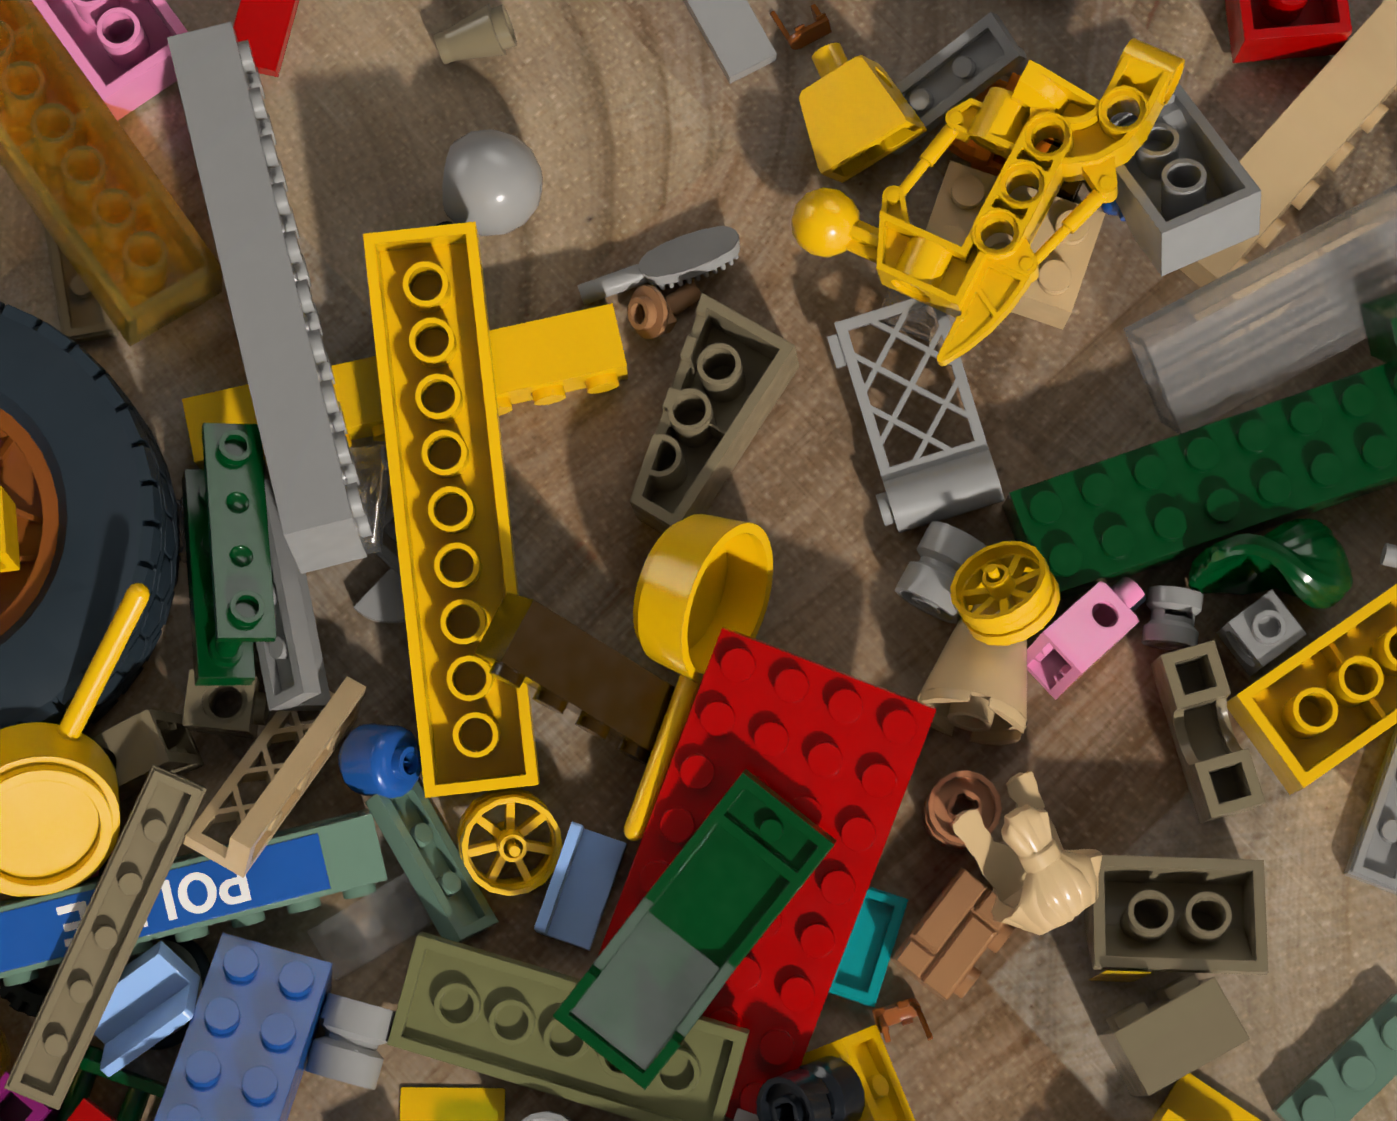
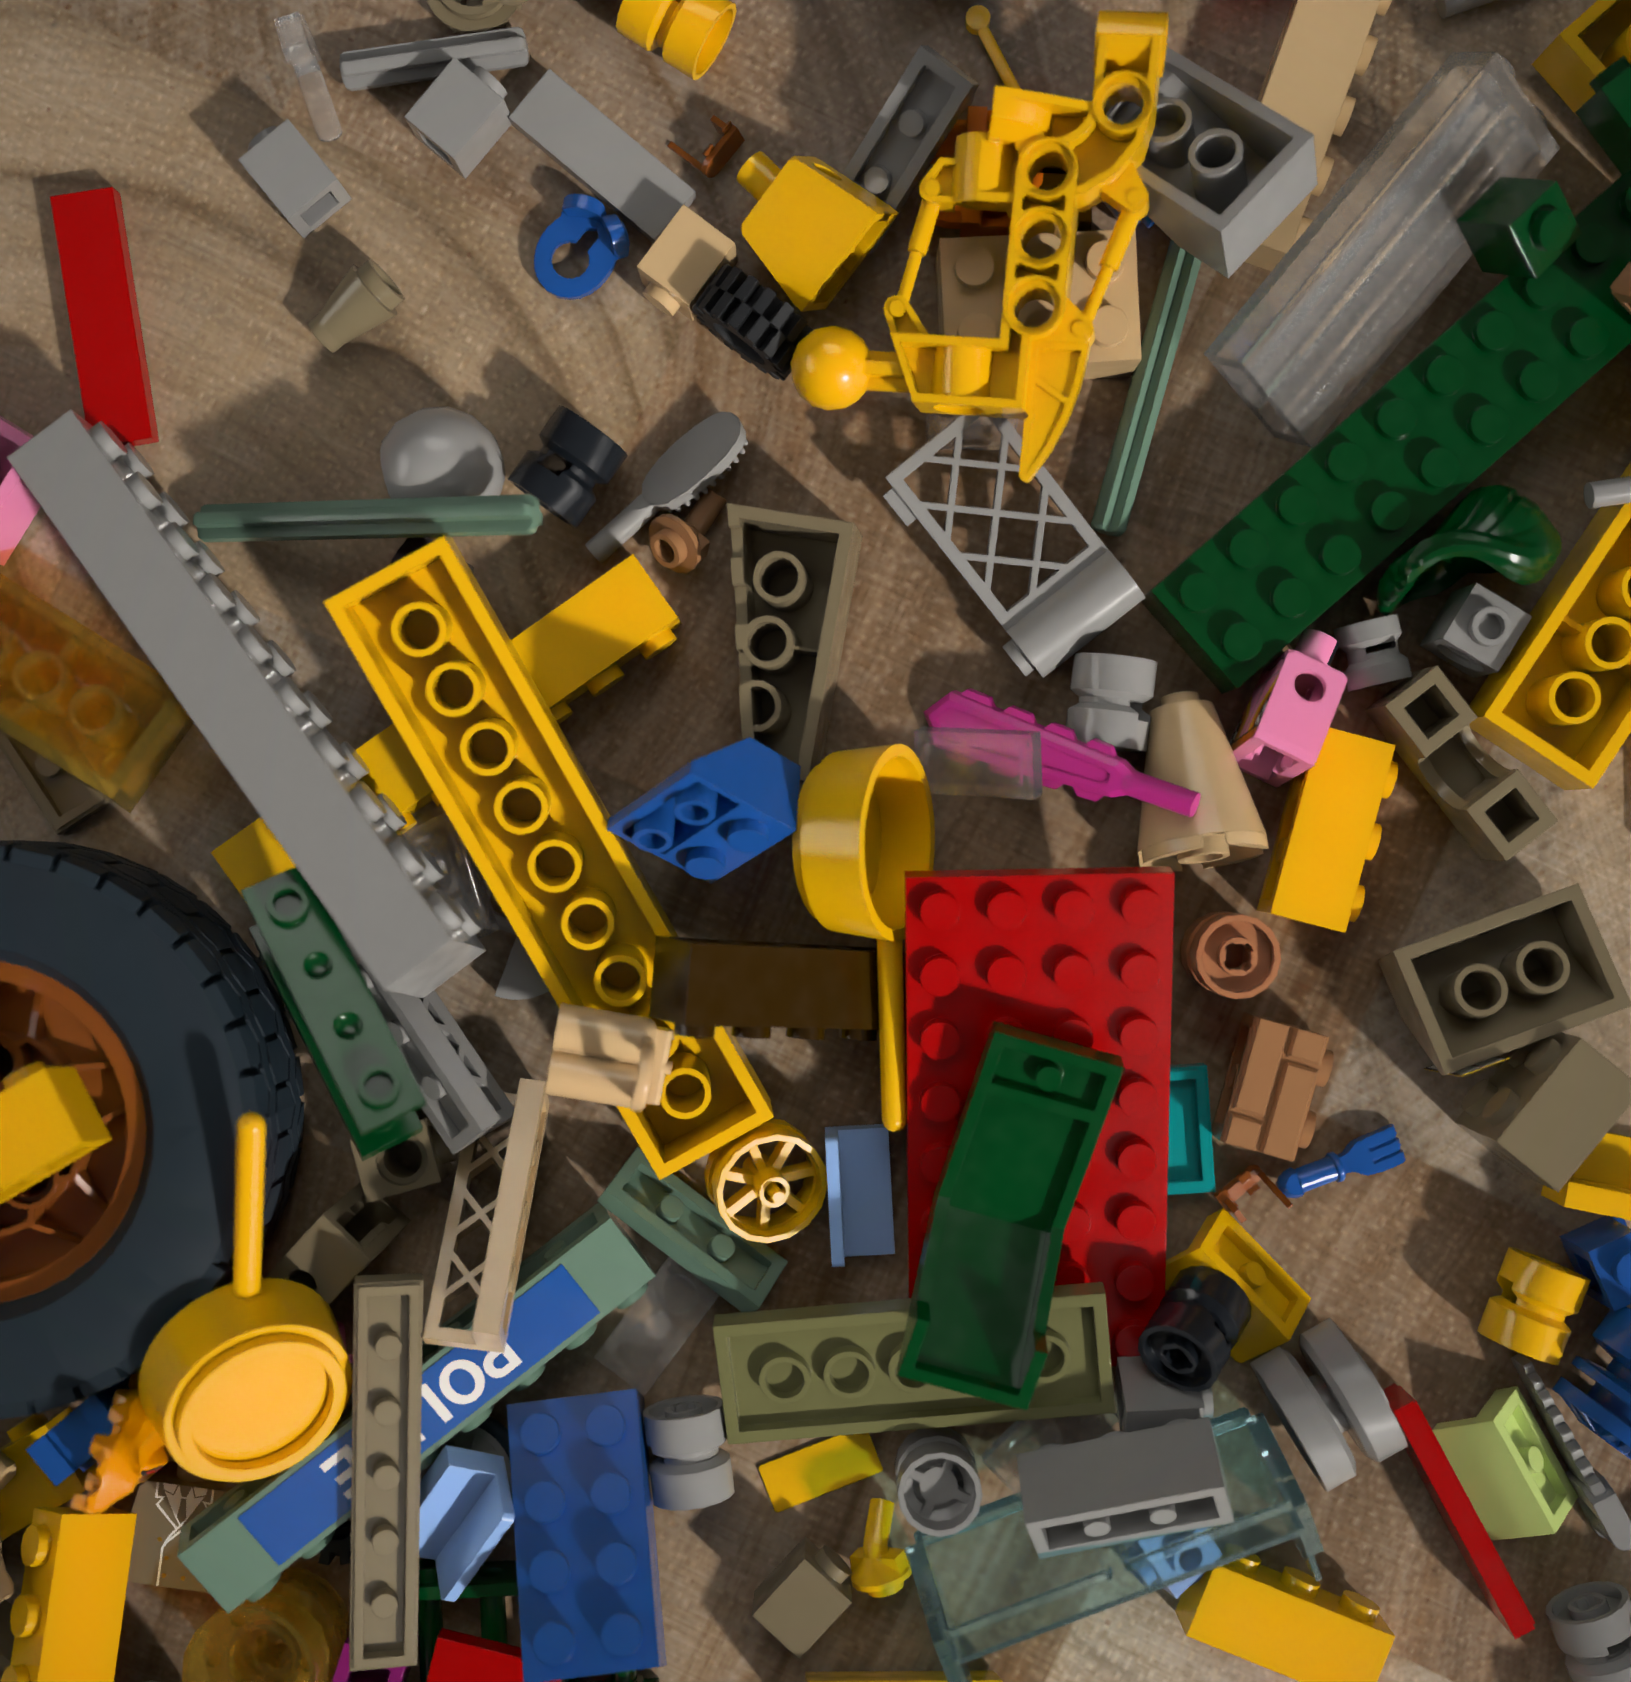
camera: 25 degrees left, 10 degrees up
(380, 760) = (593, 1151): blue head -> none
(418, 193) = (370, 518): none -> sand green axle
(428, 675) = (608, 1058): none -> tan piece
(589, 219) = (570, 443): none -> black wheel
(592, 516) = (716, 810): none -> blue slope
(680, 37) = (579, 215): none -> blue piece
(746, 105) = (684, 262): none -> tan brick
(778, 164) = (751, 320): none -> black tyre
(821, 575) = (981, 761): none -> clear tile
(854, 572) = (1088, 767): none -> dark pink sword
(997, 583) = (1194, 708): yellow wheel -> none
(1009, 1029) = (1364, 1155): none -> blue piece
(1033, 875) = (1347, 1005): tan piece -> none
(1049, 16) = (978, 23): none -> yellow hinge
(1068, 346) = (1146, 392): none -> sand green axle
(1086, 739) = (1329, 833): none -> yellow brick

